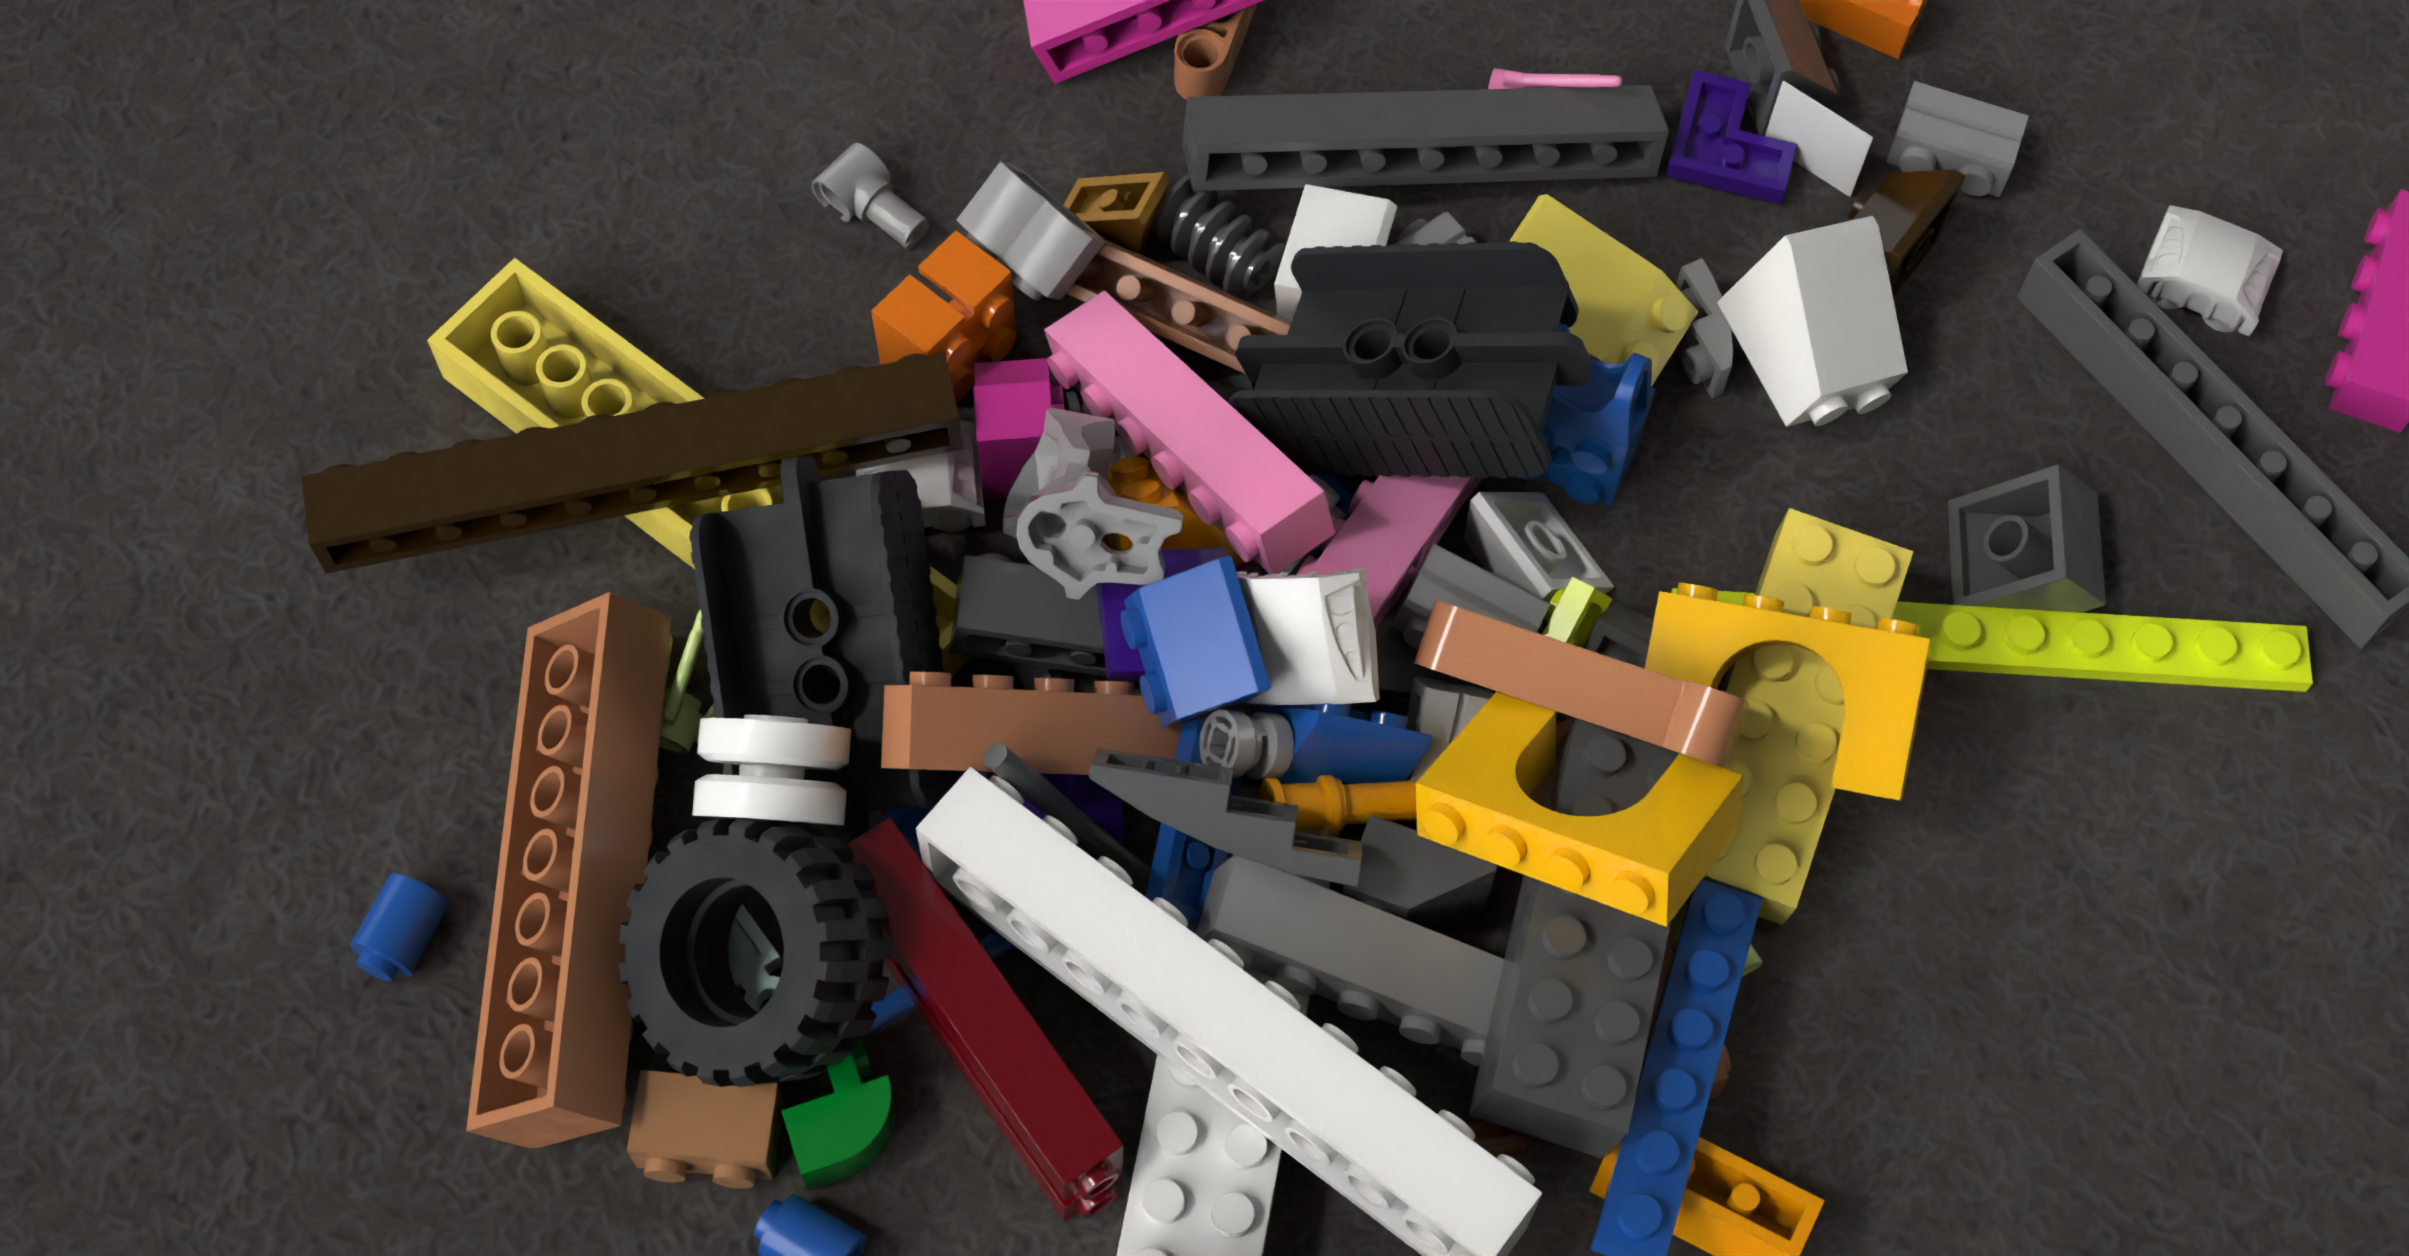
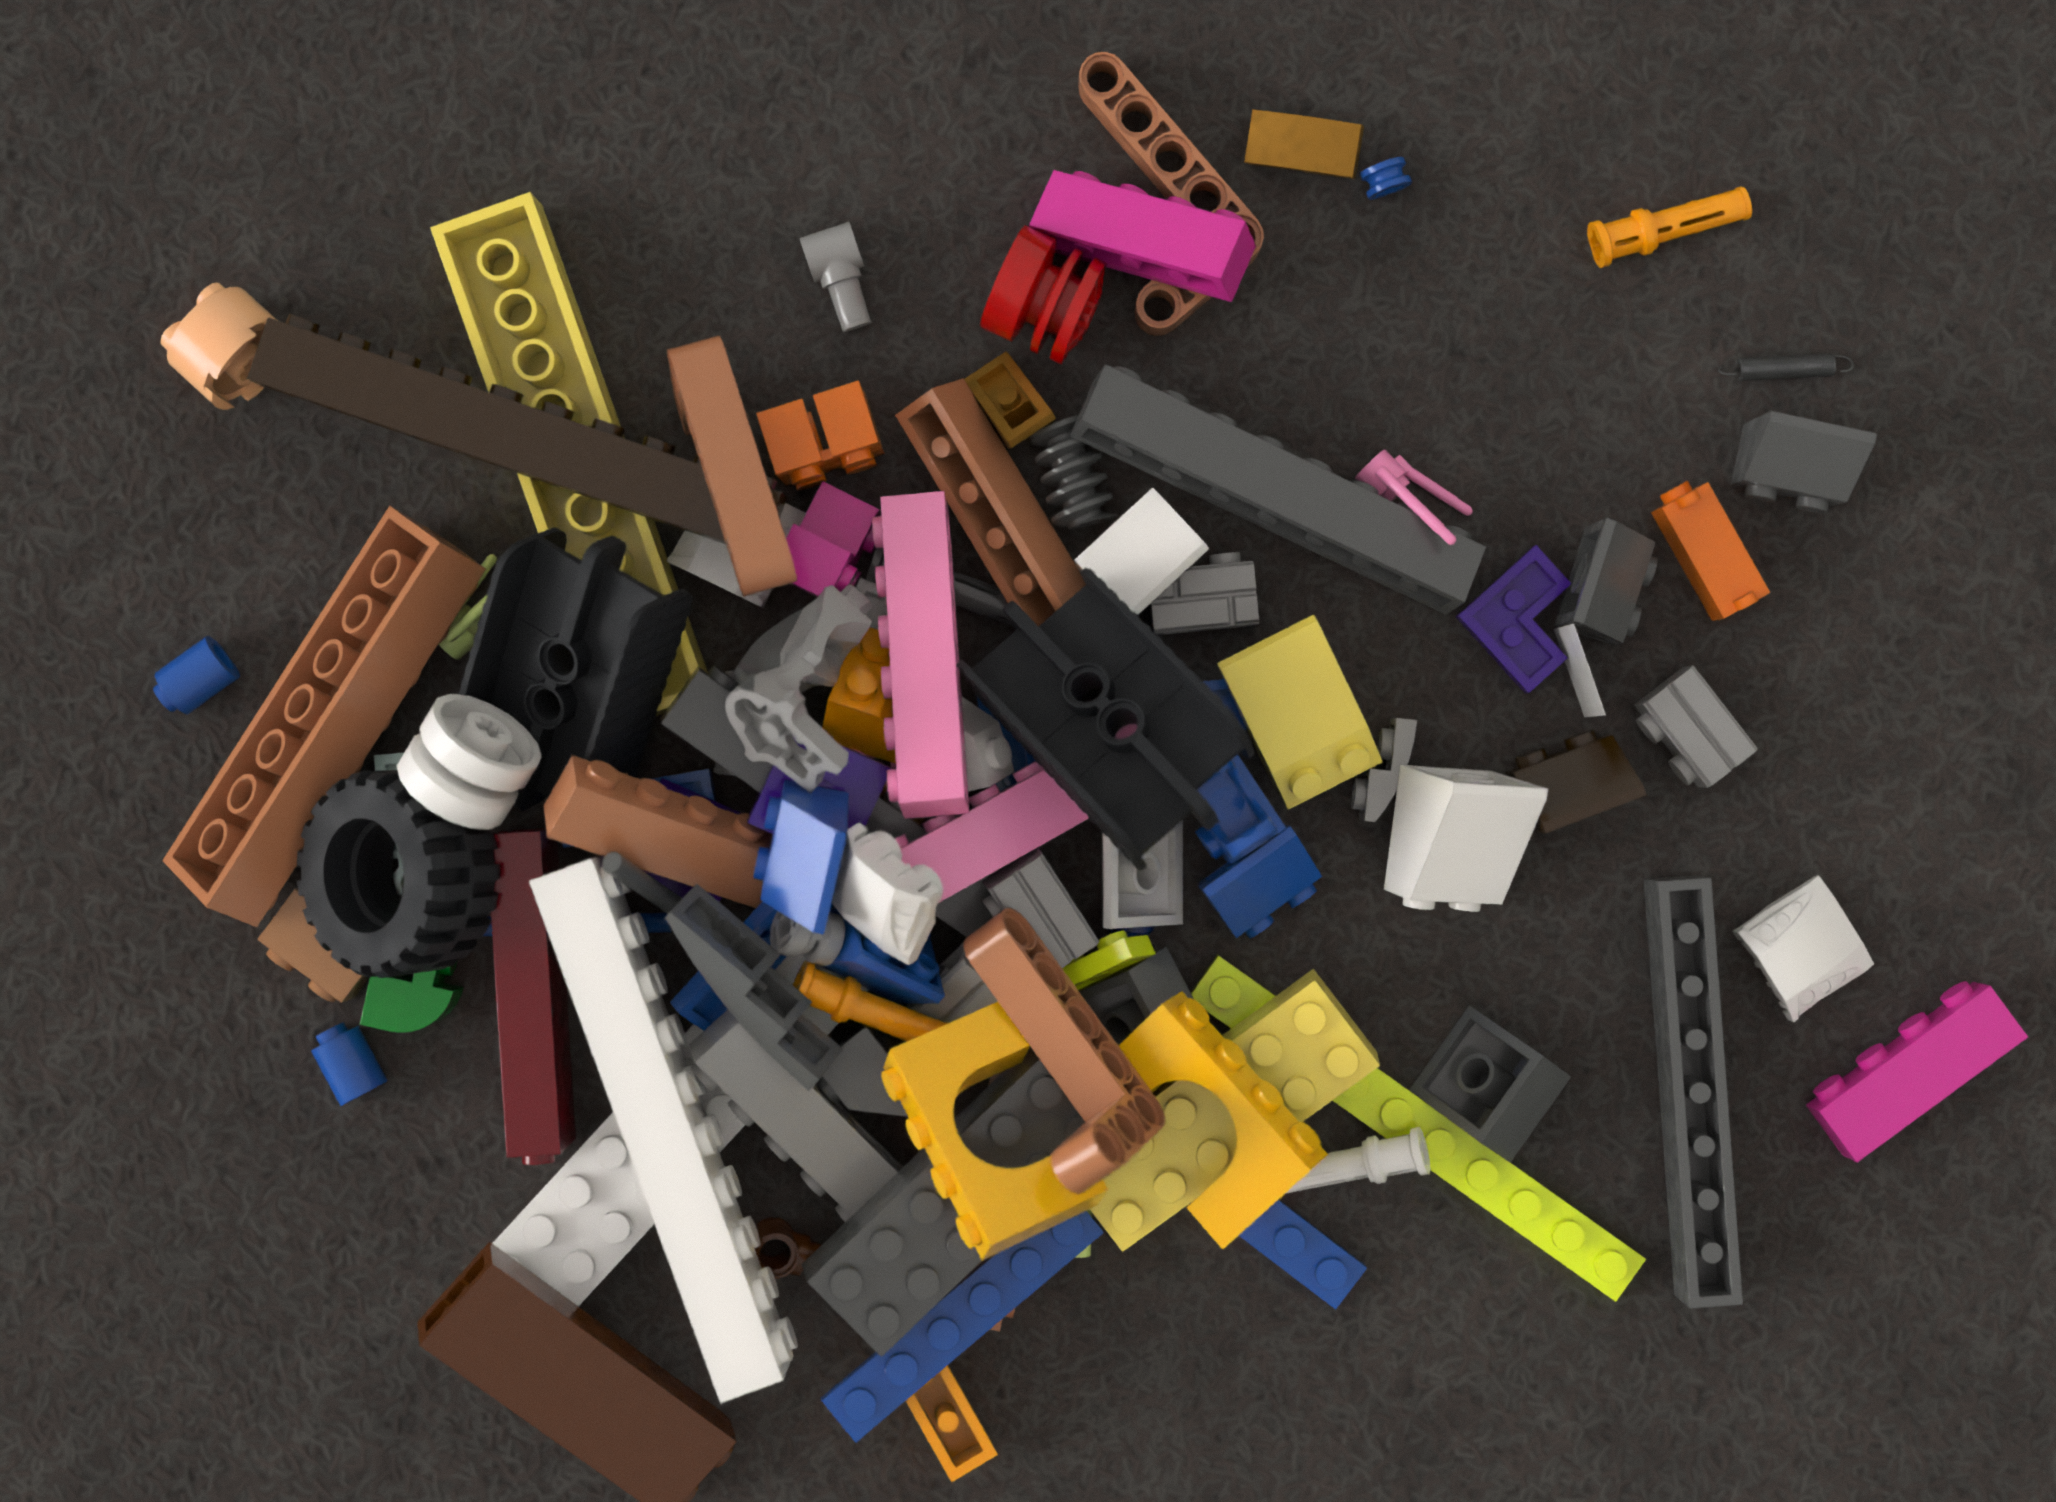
camera: 30 degrees right, 25 degrees up
(259, 573) = (218, 344): none -> light nougat brick
(825, 320) = (731, 464): none -> nougat beam
(1029, 232) = (915, 411): light grey brick -> none
(1086, 97) = (1043, 295): none -> red wheel
(1663, 483) = (1261, 883): none -> blue slope
(1954, 825) = (1304, 1253): none -> blue plate
(1972, 678) = (1372, 1160): none -> white pin

